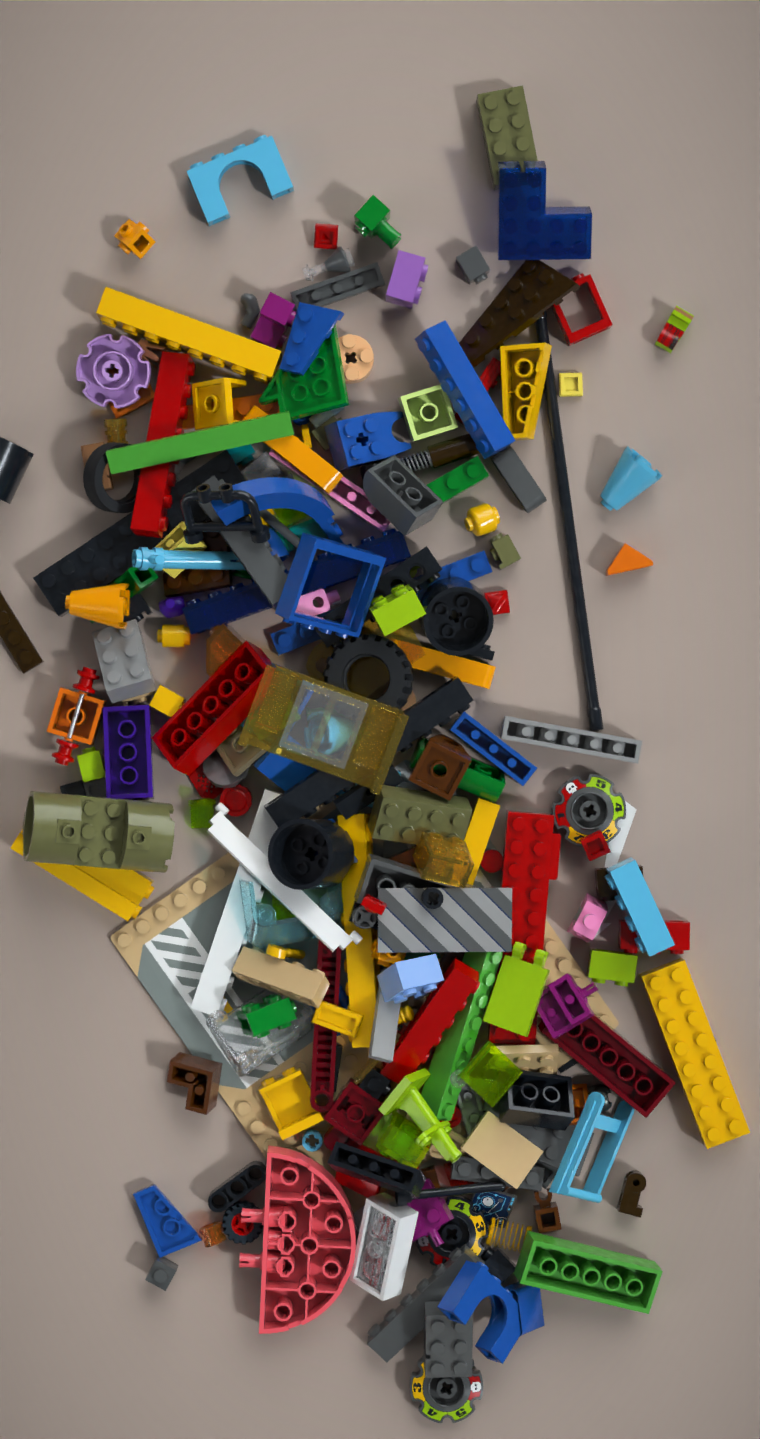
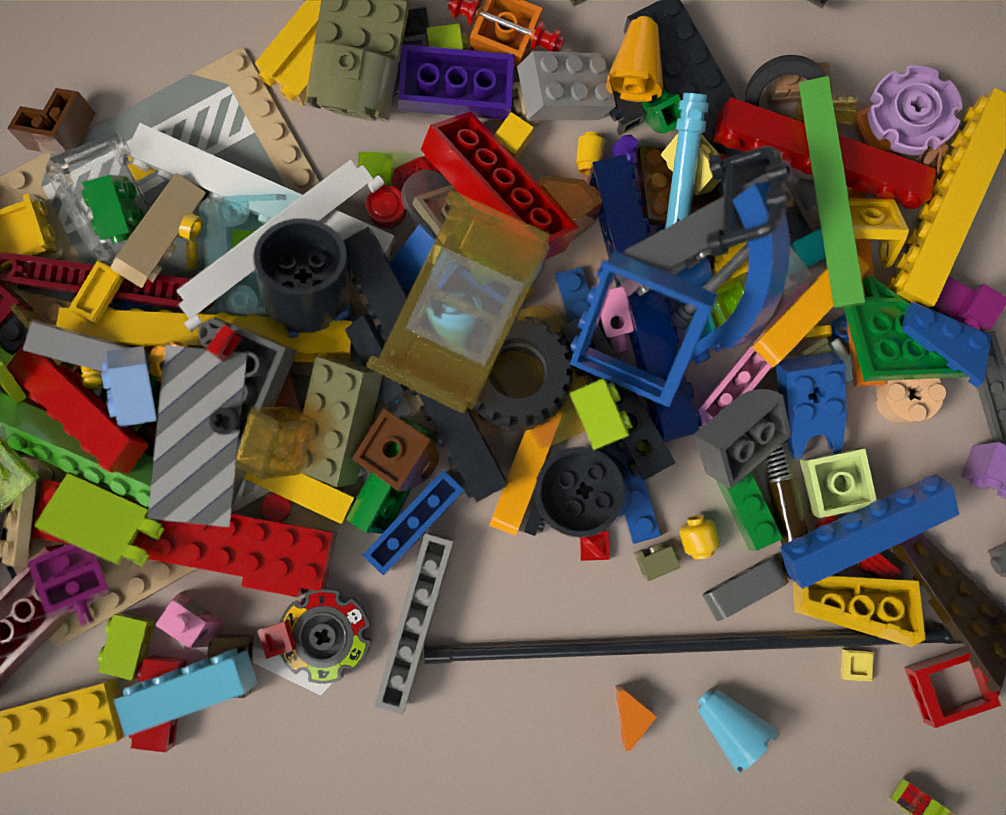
camera: 100 degrees right, 5 degrees down
(252, 309) = (975, 281): dark grey arm -> none

